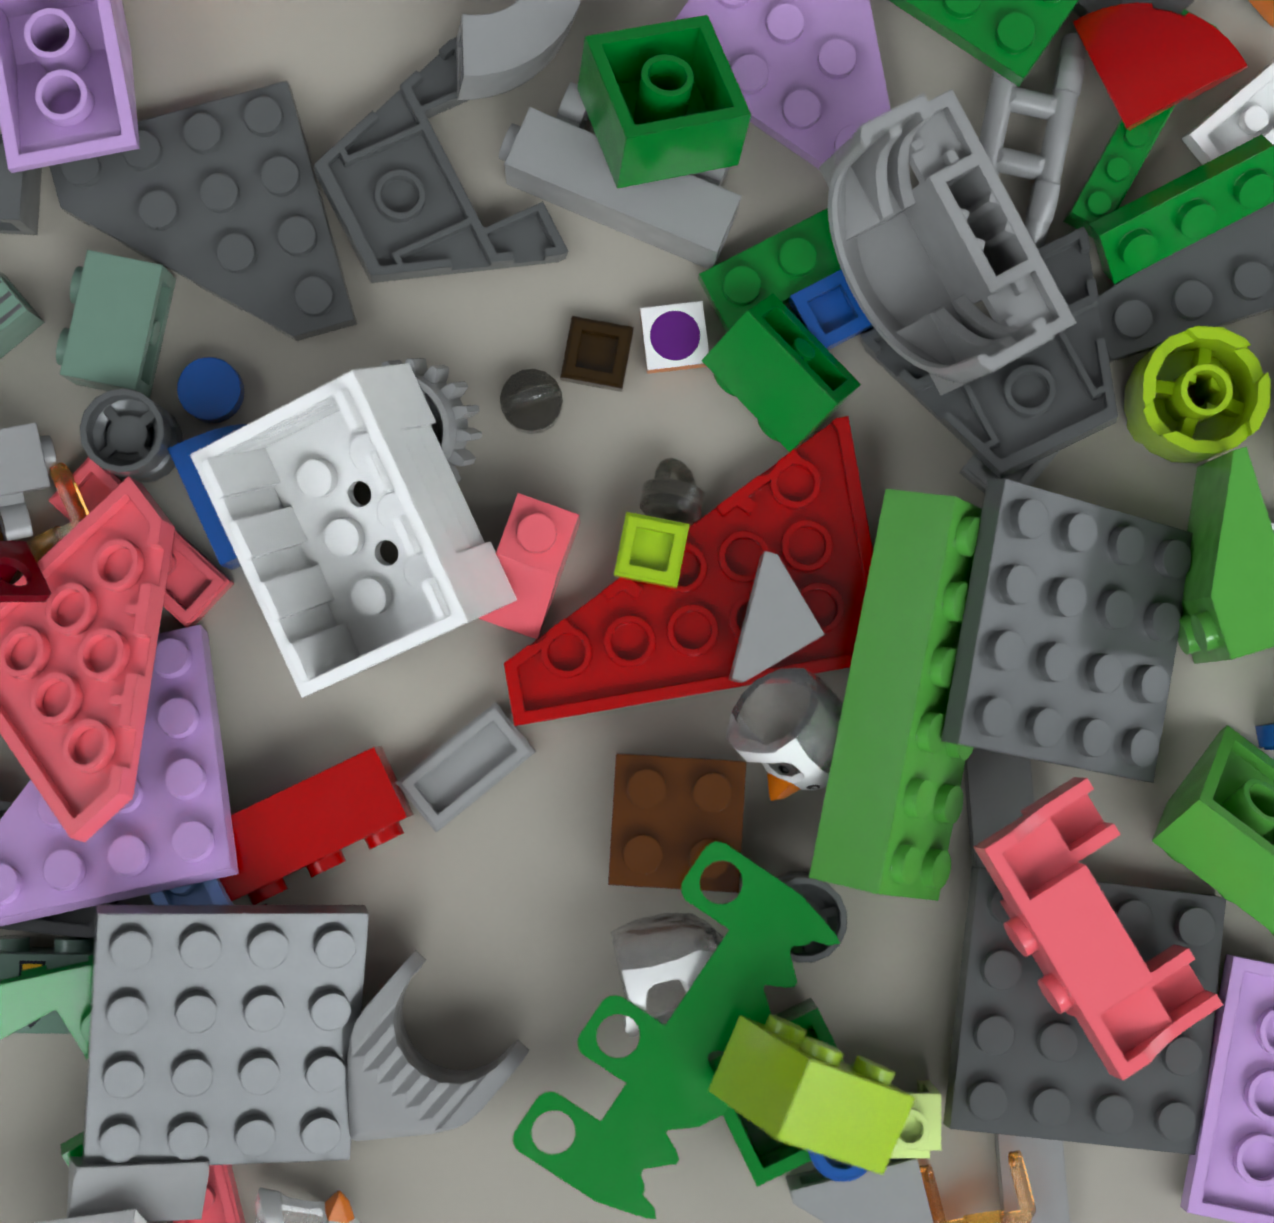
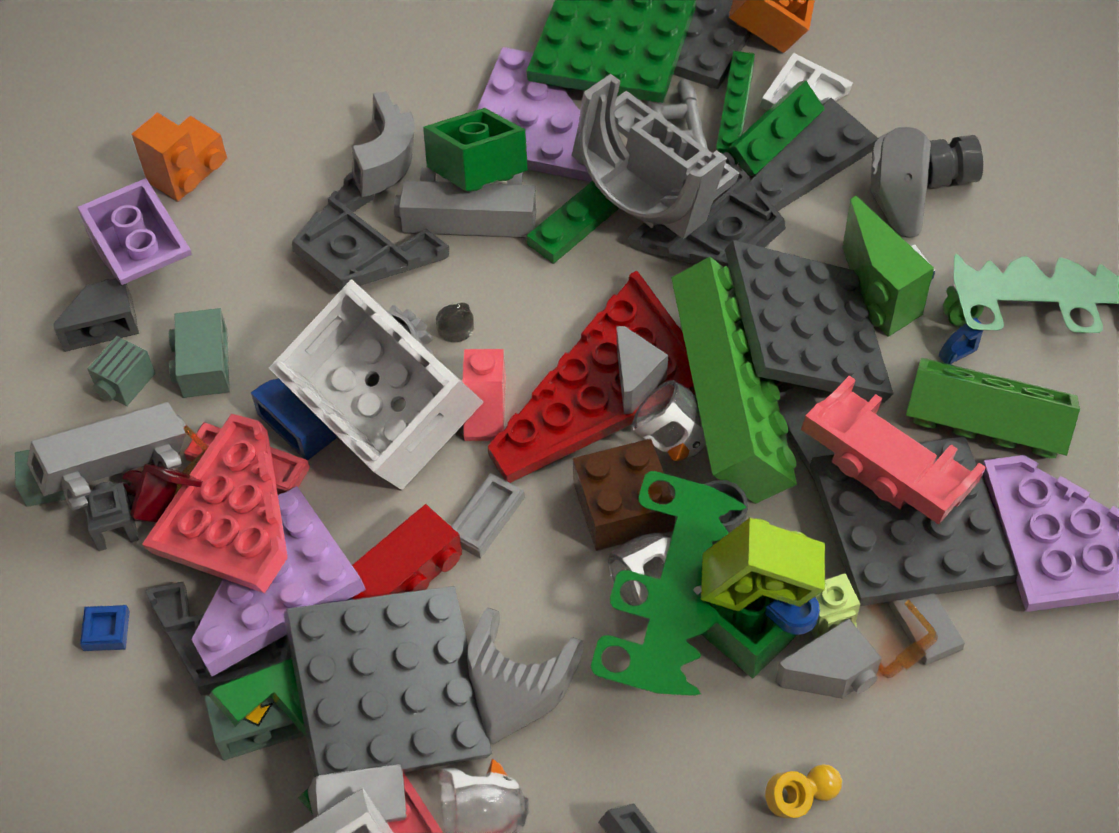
camera: 10 degrees left, 30 degrees down
(129, 435) = (224, 392): dark grey wheel -> none
(210, 390) = (258, 369): blue tile -> none
(226, 204) = (244, 275): dark grey plate -> none
(597, 353) = (484, 291): dark brown tile -> none
(651, 550) = (552, 361): lime tile -> none
(671, 498) = (553, 339): clear smoke tile -> none
(674, 337) = (524, 270): tile -> none
(780, 372) = (590, 260): green brick -> none
(830, 310) = (606, 230): blue plate -> none
(1155, 57) = (728, 69): red brick -> none
(1224, 377) = (819, 202): lime brick -> none

